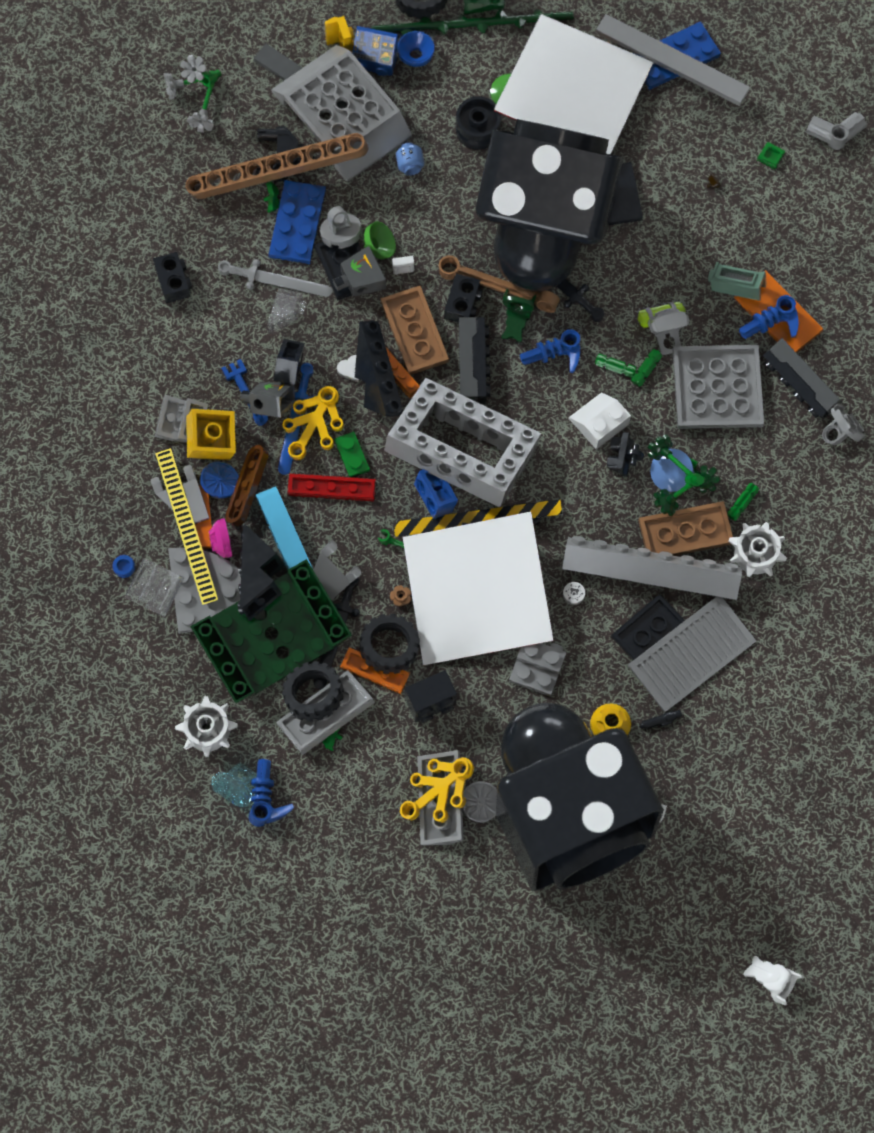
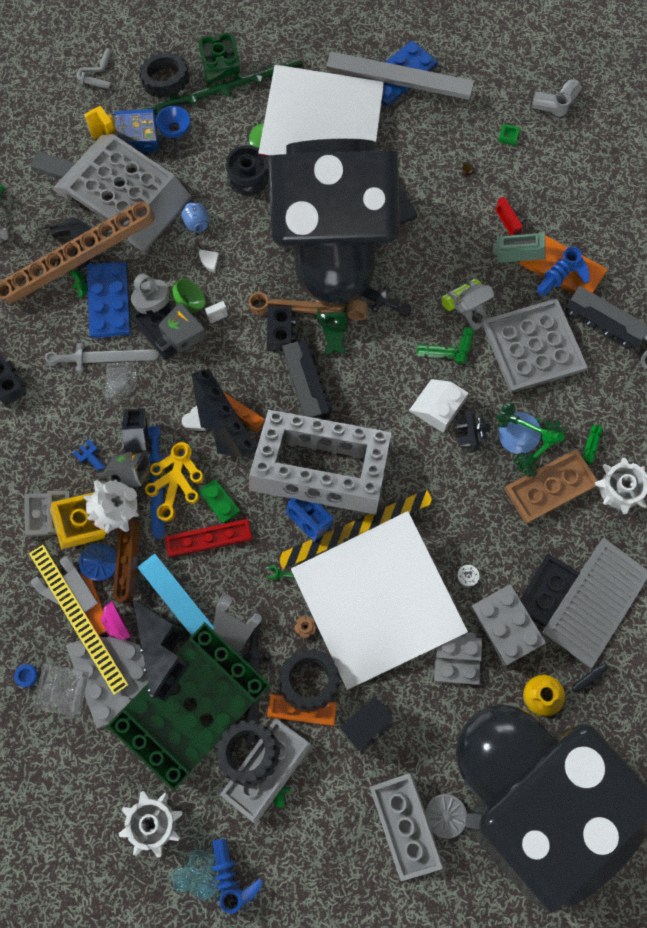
camera: 15 degrees left, 0 degrees up
(248, 428) = (111, 505): none -> white brick
(411, 207) = (209, 259): none -> white tile
(414, 330) = (244, 368): medium nougat plate -> none
(440, 788) = (405, 818): yellow plant -> none
(557, 347) = (379, 349): blue piece -> none
(595, 647) = (507, 625): none -> light grey brick
(652, 568) = (535, 531): light grey brick -> none
(737, 246) = (508, 217): none -> red tile

